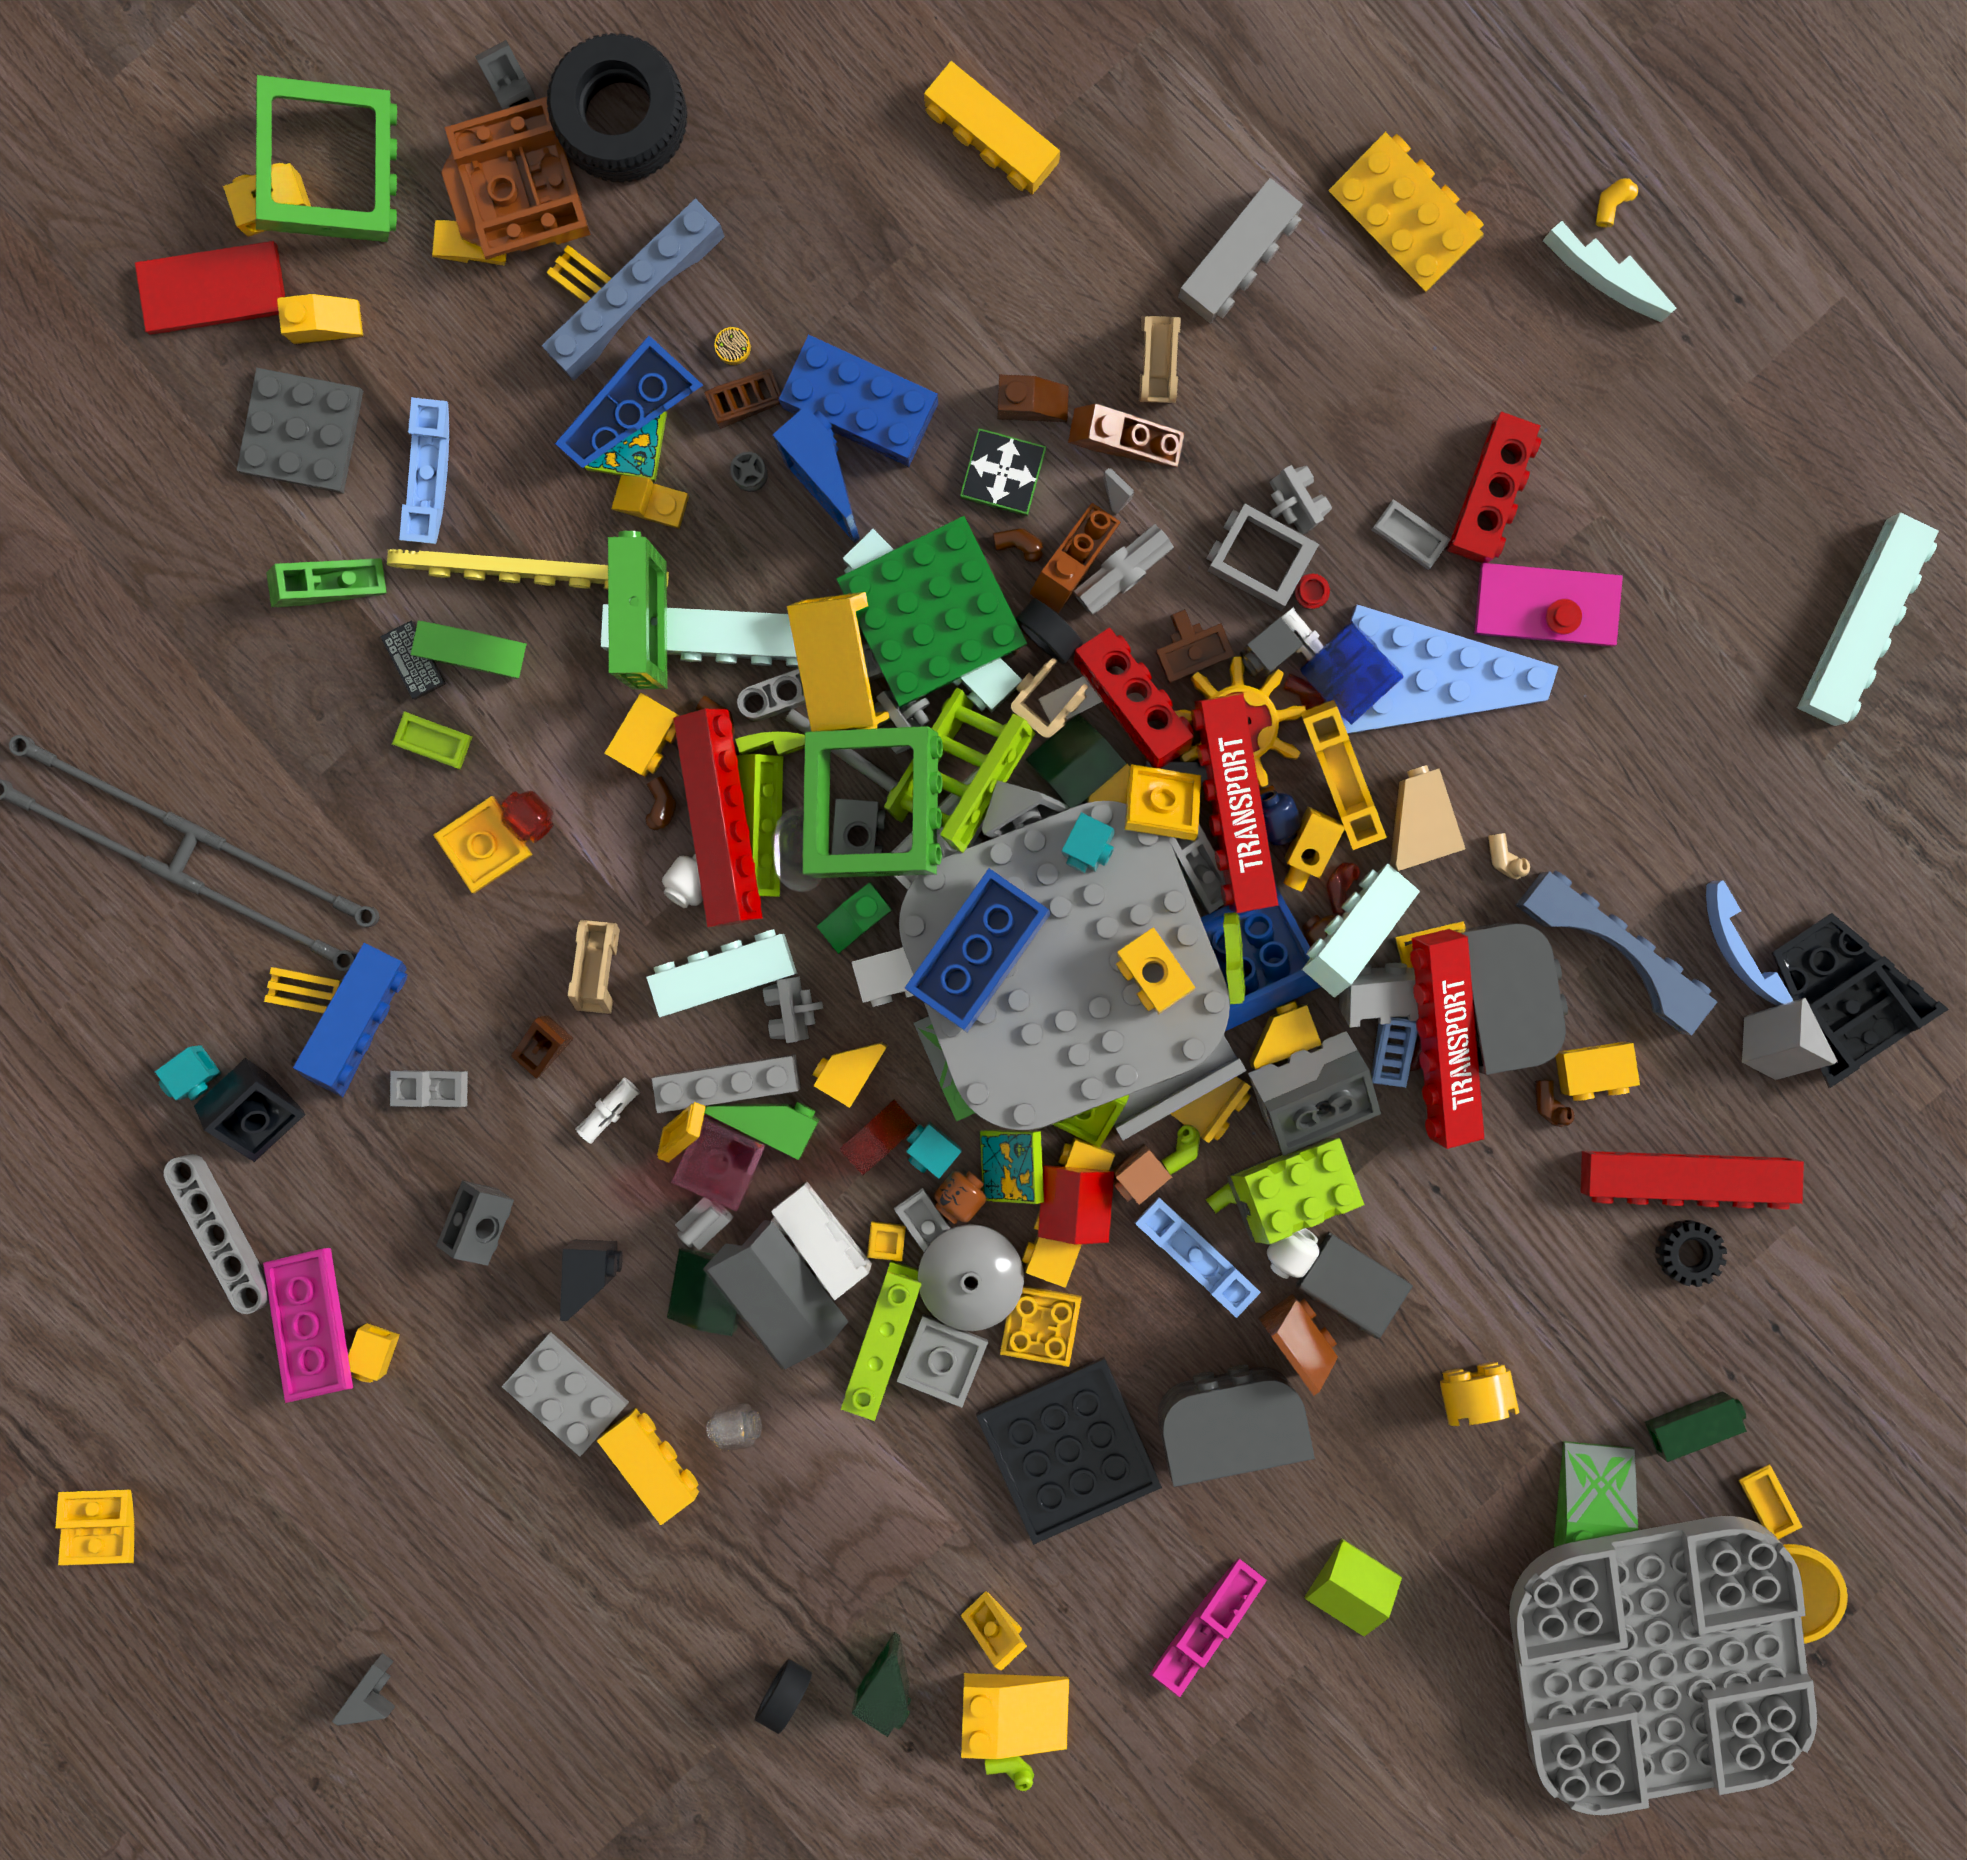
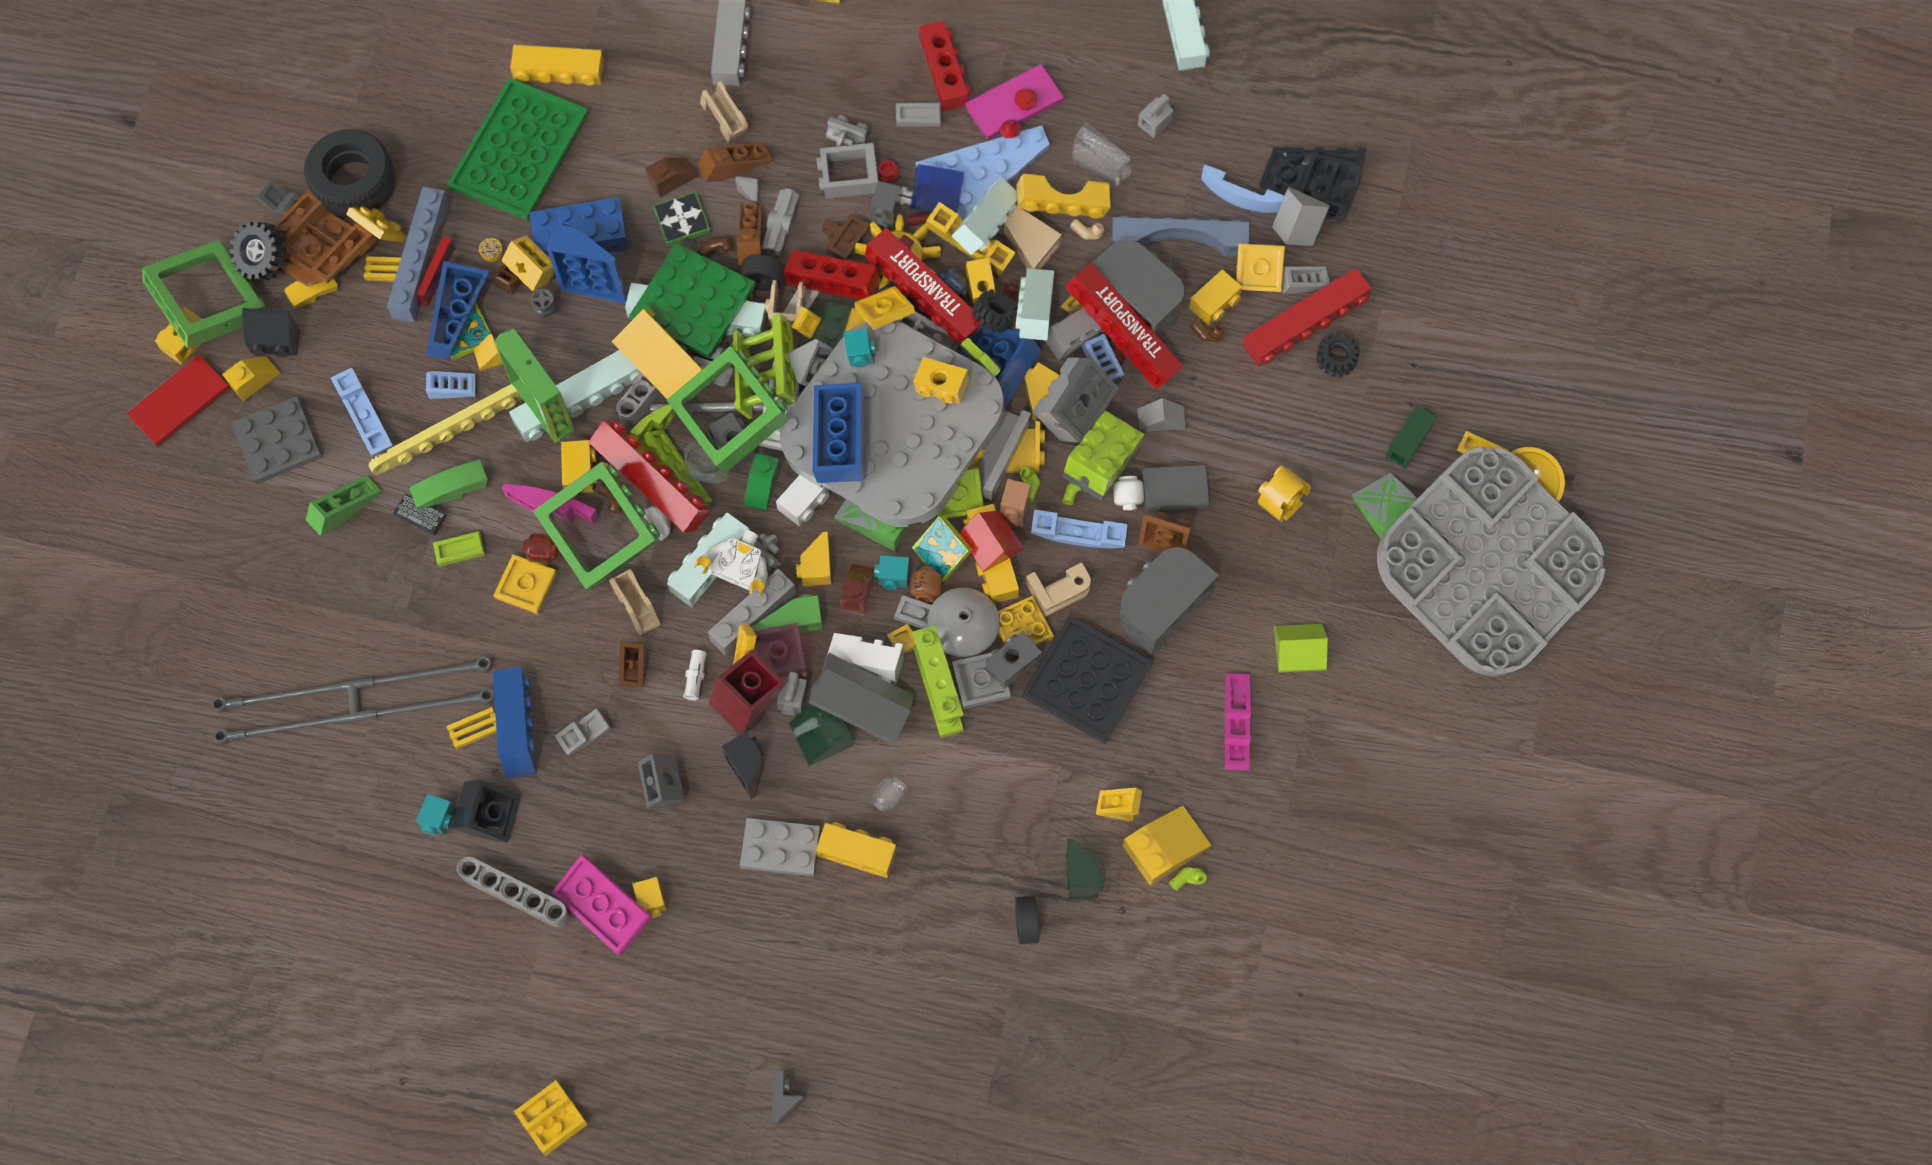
camera: 35 degrees left, 20 degrees down
(375, 277) = (270, 332): none -> black slope
(427, 149) = (248, 251): none -> black wheel
(535, 489) = (450, 377): none -> light blue slope
(570, 752) = (534, 497): none -> dark pink slope
(604, 212) = (377, 224): none -> yellow tile
(645, 1193) = (746, 692): none -> dark red slope
(646, 325) = (432, 276): none -> red tile
(660, 833) = (635, 512): none -> bright green piece
(744, 1019) = (737, 562): none -> white torso
(758, 408) = (528, 263): none -> yellow brick
(861, 219) = (518, 149): none -> green plate
(1010, 1385) = (1008, 672): none -> dark grey brick
(1053, 747) = (806, 322): none -> yellow tile
(1117, 1320) = (1062, 592): none -> tan piece
(1284, 903) = (1003, 312): none -> black tyre
(1386, 760) = (986, 216): none -> light aqua brick
(1408, 1177) = (1161, 416): none -> light grey slope
(1475, 772) = (1037, 195): none -> yellow arch
(1511, 646) = (1010, 129): none -> red plate
(1600, 771) = (1100, 155): none -> clear slope
(1684, 1070) = (1260, 267): none -> yellow tile
(1708, 1109) = (1290, 279): none -> light grey slope
(1714, 760) = (1156, 116): none -> light grey brick

